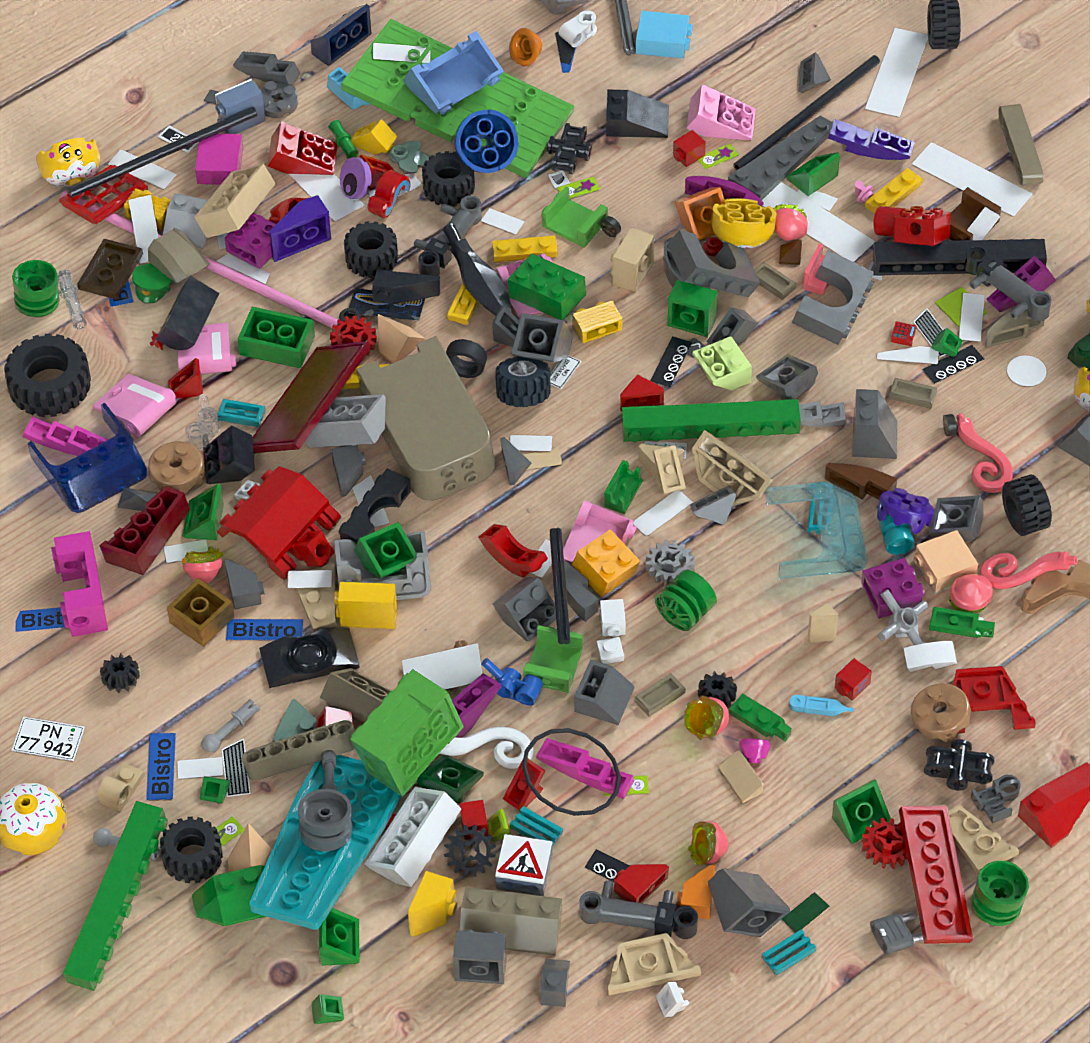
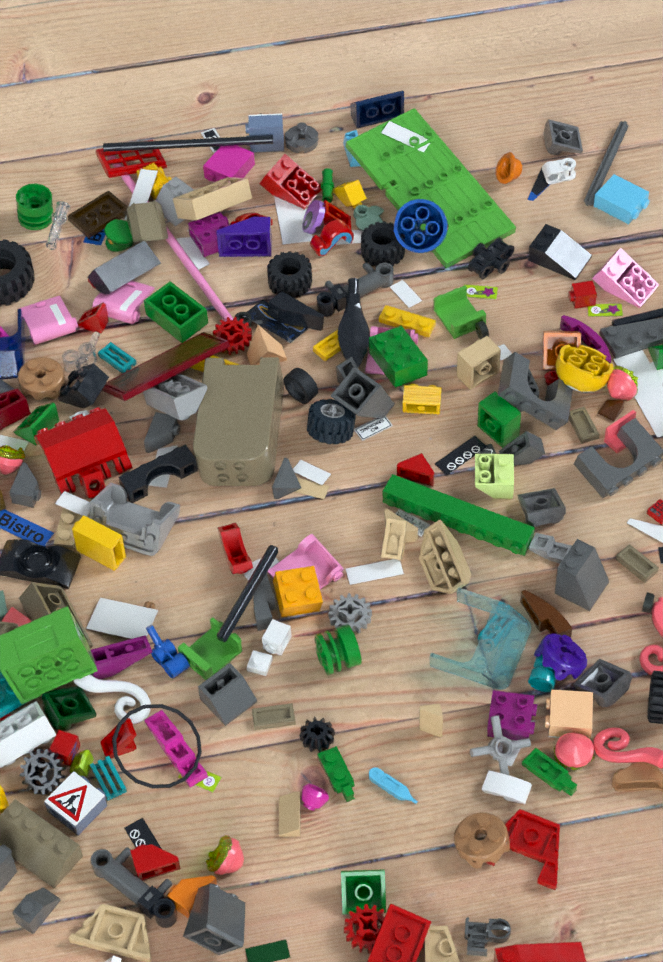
camera: 30 degrees right, 0 degrees up
(69, 162) = (119, 125): yellow cylinder -> none
(150, 173) = (176, 156): white sticker -> none
(267, 67) = (309, 112): dark grey slope -> none
(385, 550) = (139, 506): green slope -> none
(454, 74) = (430, 167): medium blue windscreen -> none
(526, 607) = (215, 598): dark grey slope -> none
(558, 179) = (469, 278): white sticker -> none
(622, 488) = (353, 537): green hinge -> none
(706, 717) = (291, 752): clear neon green hair -> none
(715, 506) = (415, 584): slope -> none
(852, 679) = (430, 777): red brick -> none
(968, 765) = (470, 891): black axle -> none

